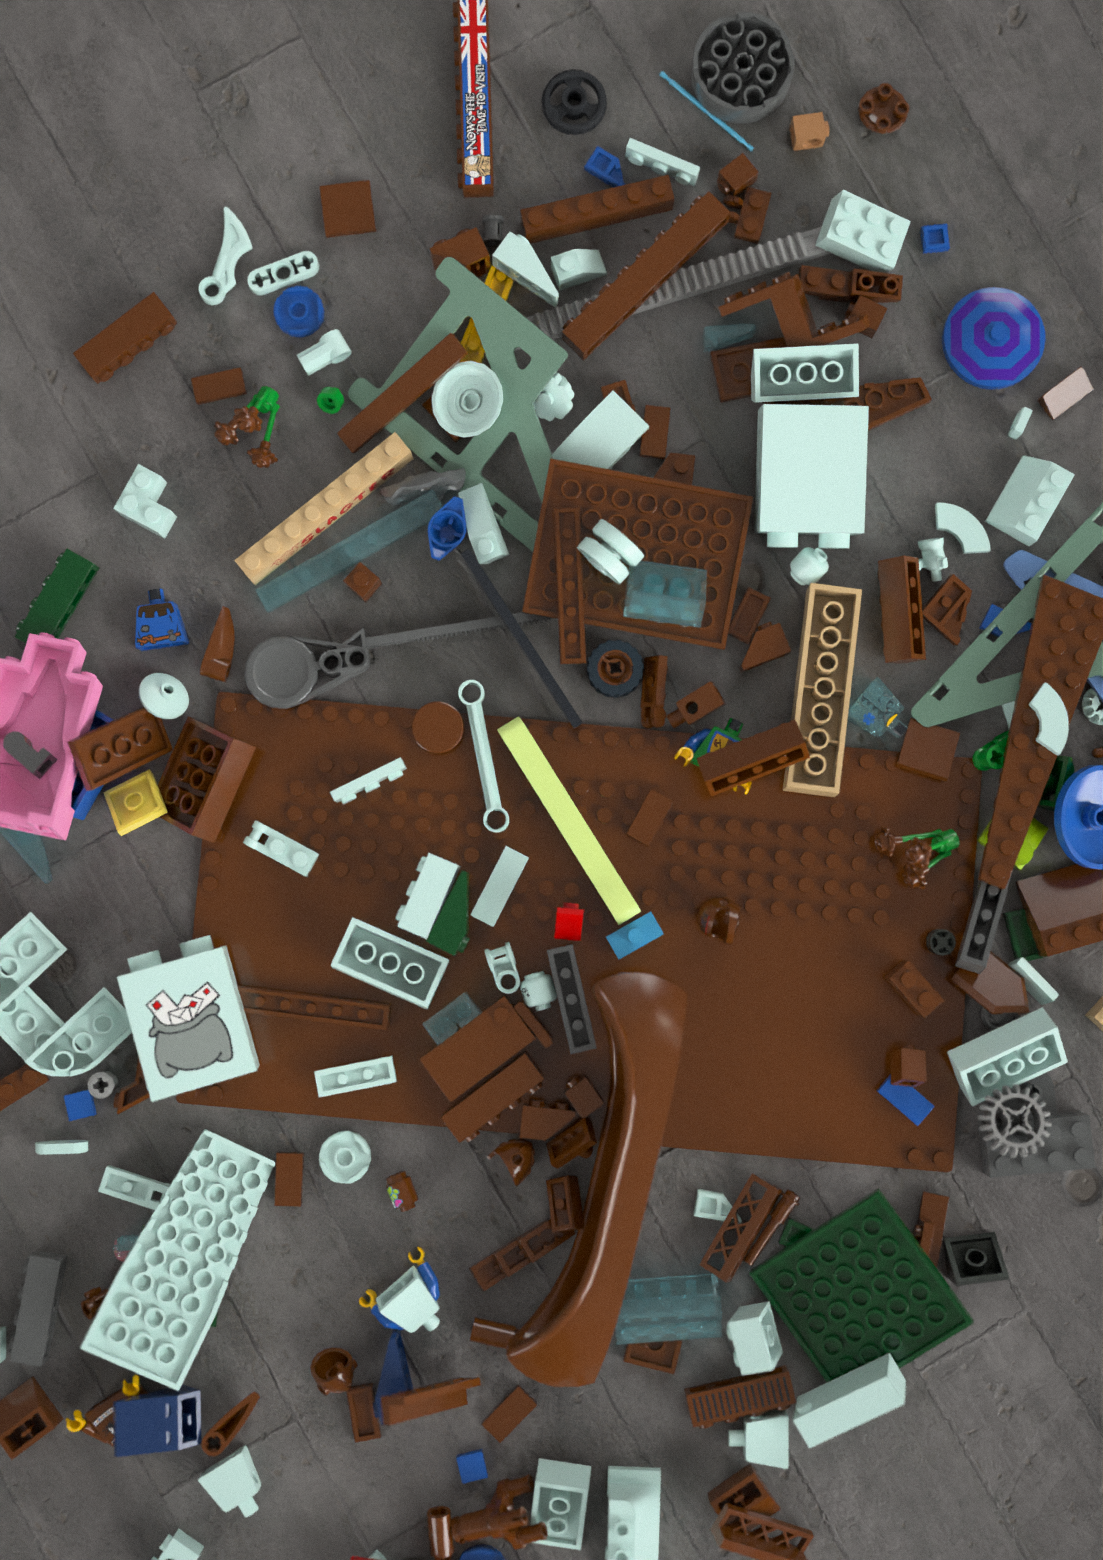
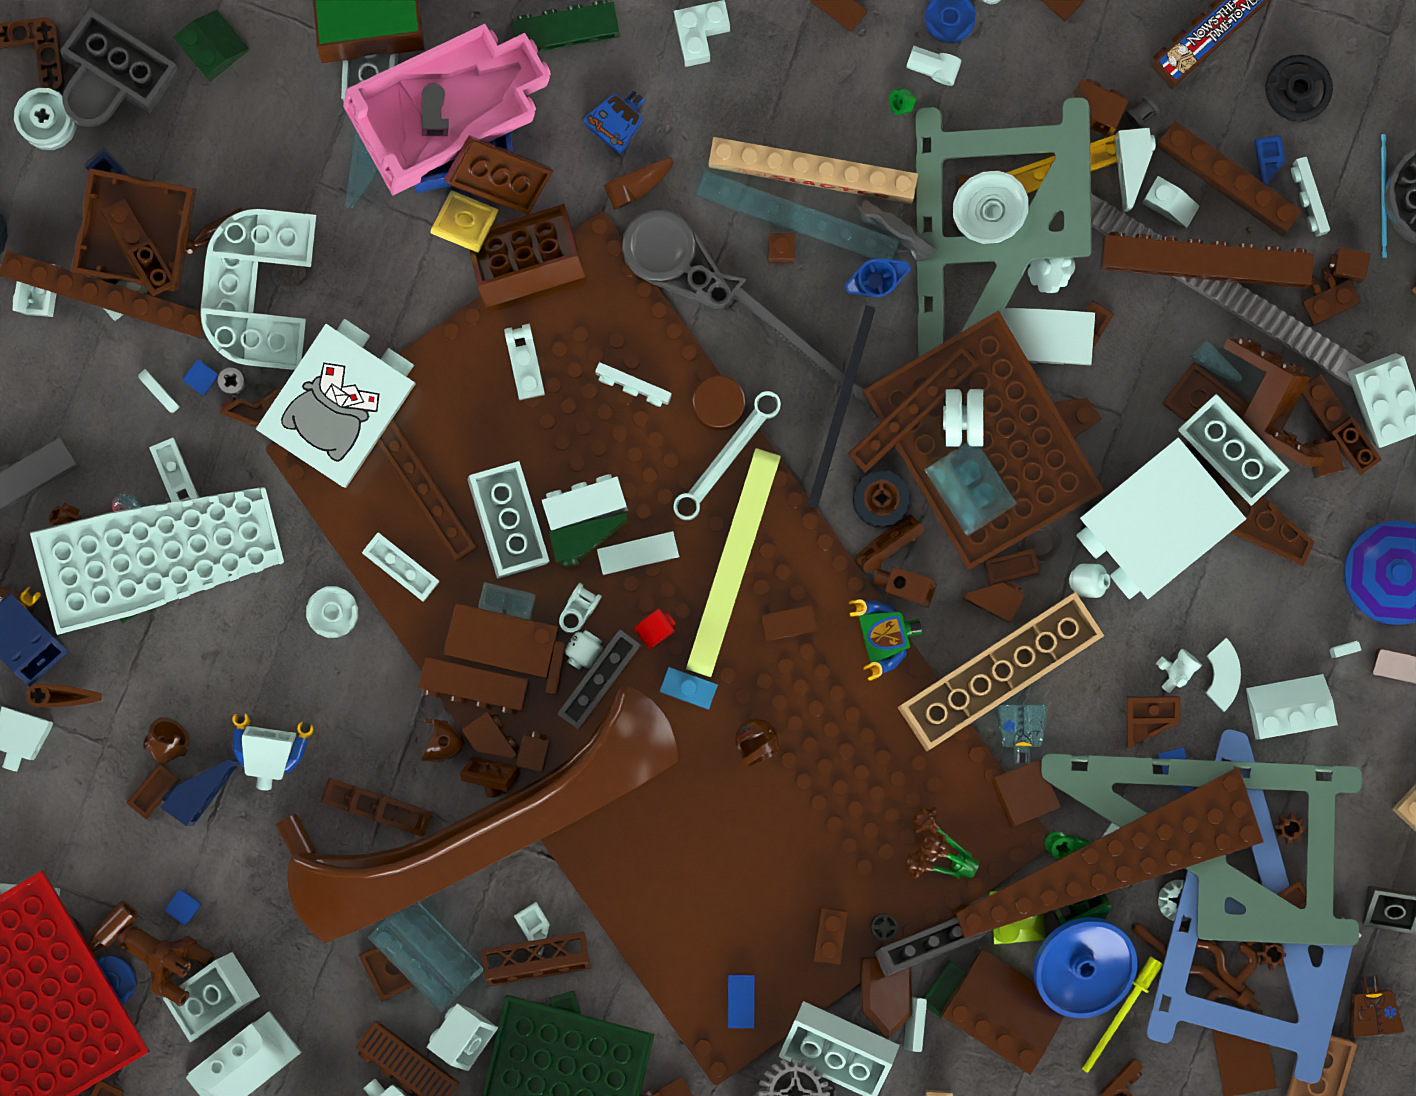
camera: 50 degrees right, 0 degrees up
(160, 703) = (556, 170): light aqua dish -> none
(248, 421) = (828, 56): reddish brown plant -> none
(289, 1179) = (279, 583): reddish brown tile -> none
(401, 1191) = (343, 676): reddish brown brick -> none
(402, 393) = (953, 153): reddish brown tile -> none
(426, 1399) = (207, 826): reddish brown fence -> none
(482, 526) = (904, 302): light aqua slope -> none
(509, 1413) = (246, 901): reddish brown tile -> none
(565, 1204) = (439, 809): reddish brown slope -> none
(655, 438) = (1088, 377): reddish brown tile -> none
(753, 757) = (899, 660): reddish brown brick -> none
(779, 1216) = (569, 981): reddish brown pin -> none
(901, 610) = (1112, 682): reddish brown brick -> none
(908, 1066) = (766, 981): reddish brown brick -> none
(1052, 719) = (1127, 865): light aqua tile -> none

